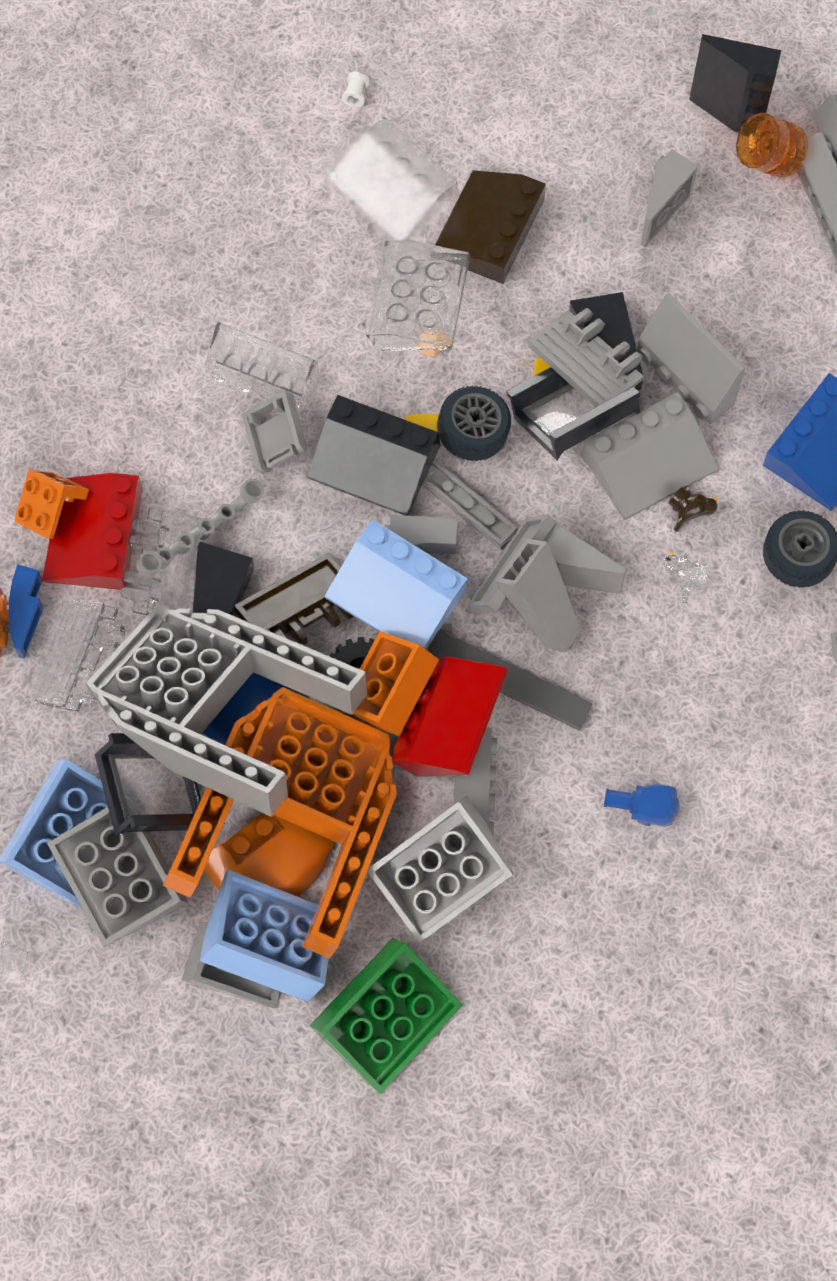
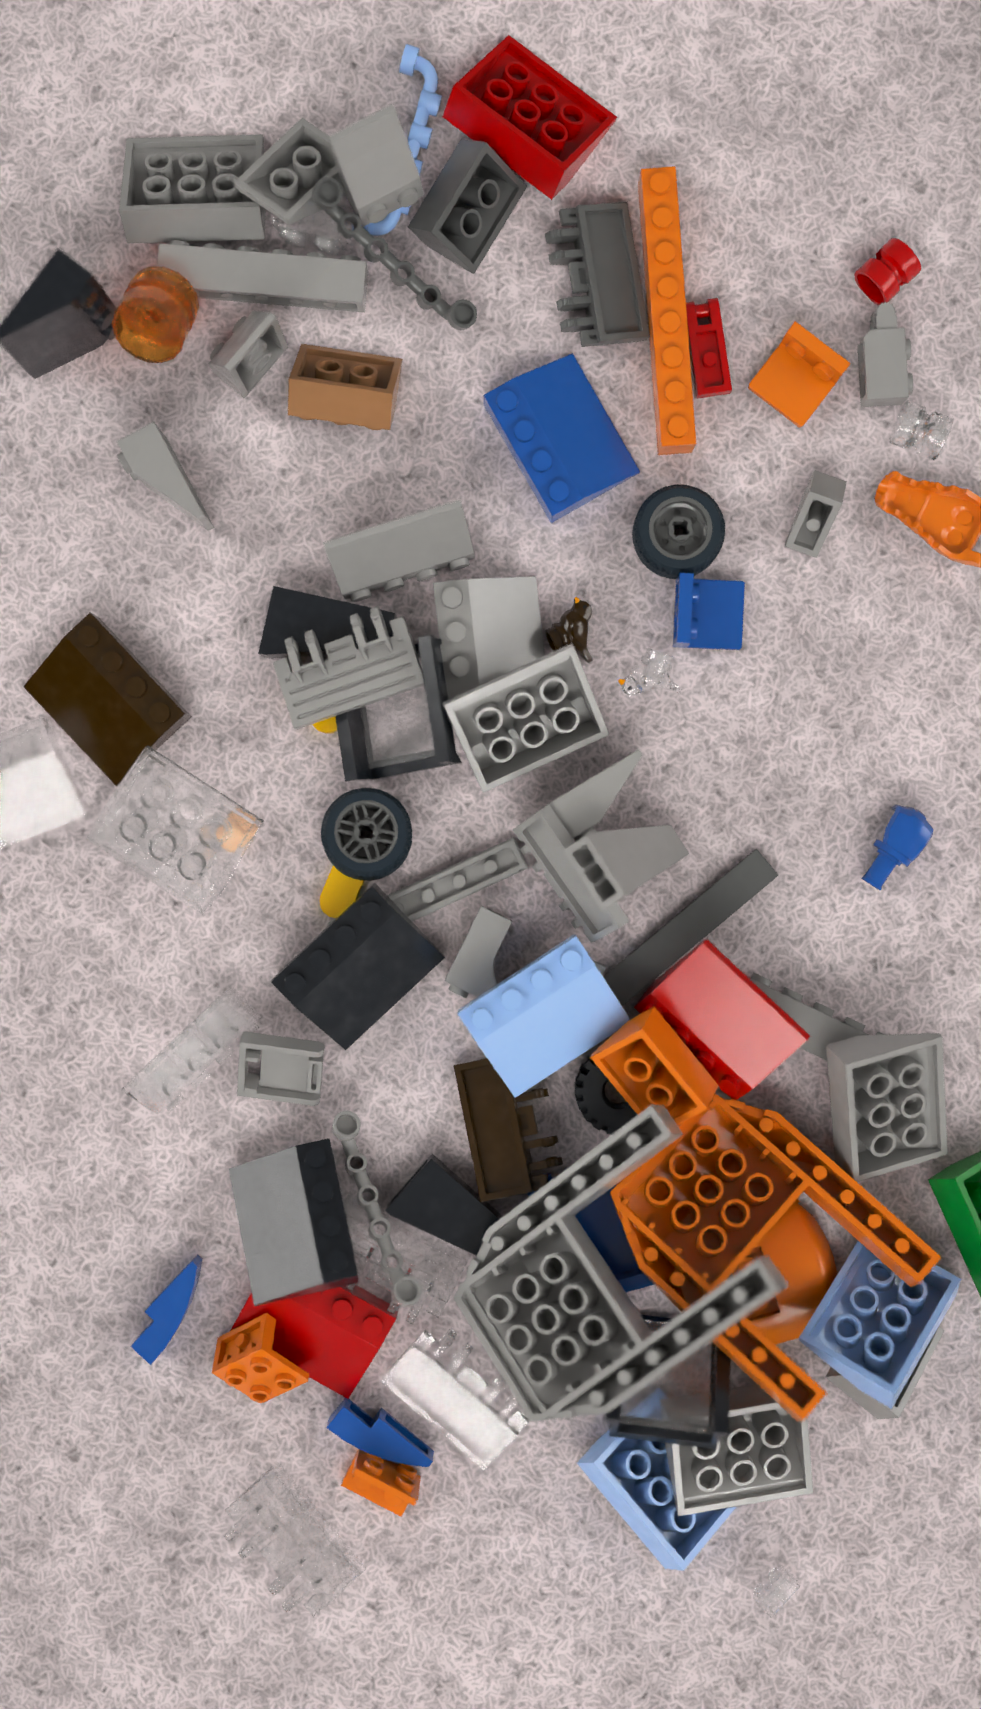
camera: 65 degrees left, 20 degrees up
(62, 429) = (168, 1312): none -> blue slope
(166, 480) = (293, 1223): none -> slope
(612, 488) = (526, 718): none -> light grey slope
(751, 593) = (708, 613): none -> blue bracket
(777, 215) = (249, 352): none -> light grey slope
(786, 287) = (344, 387): none -> medium nougat slope

